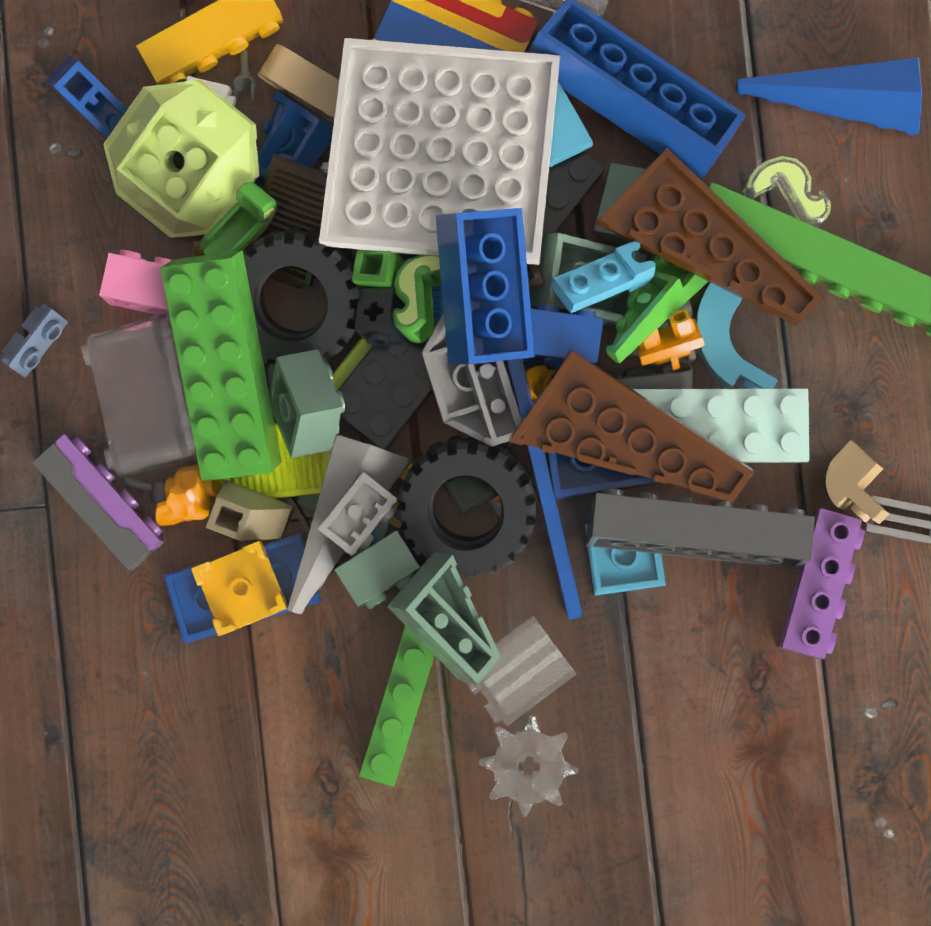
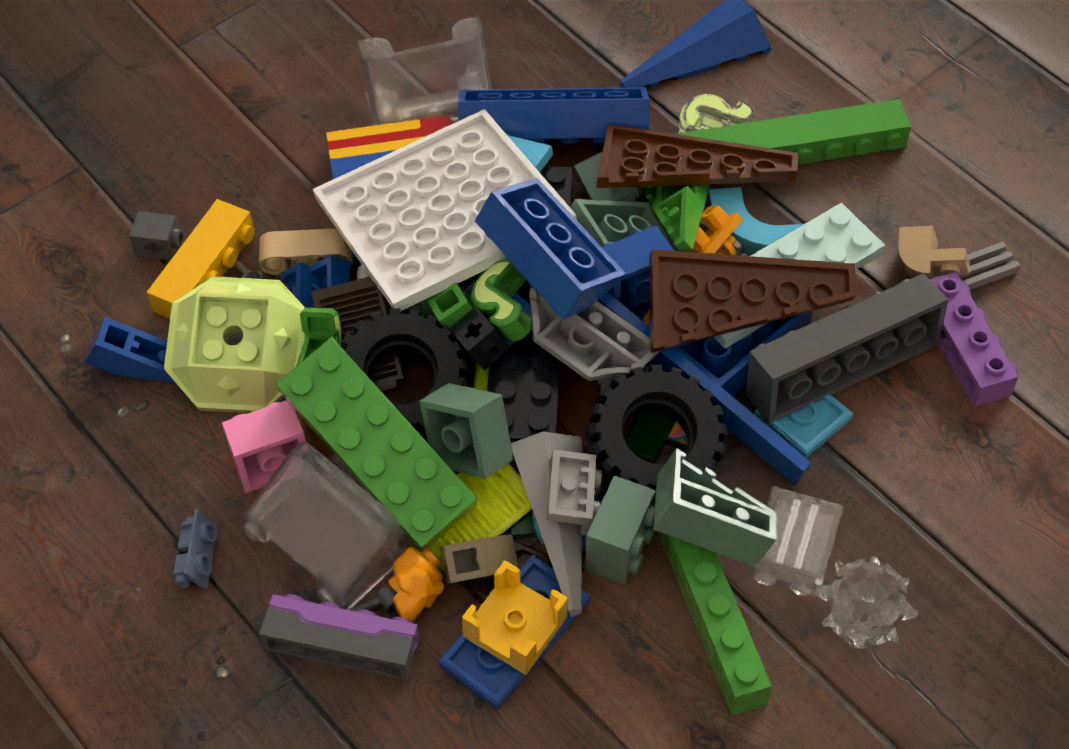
camera: 30 degrees left, 30 degrees down
(603, 278) = (633, 209): medium azure plate -> none

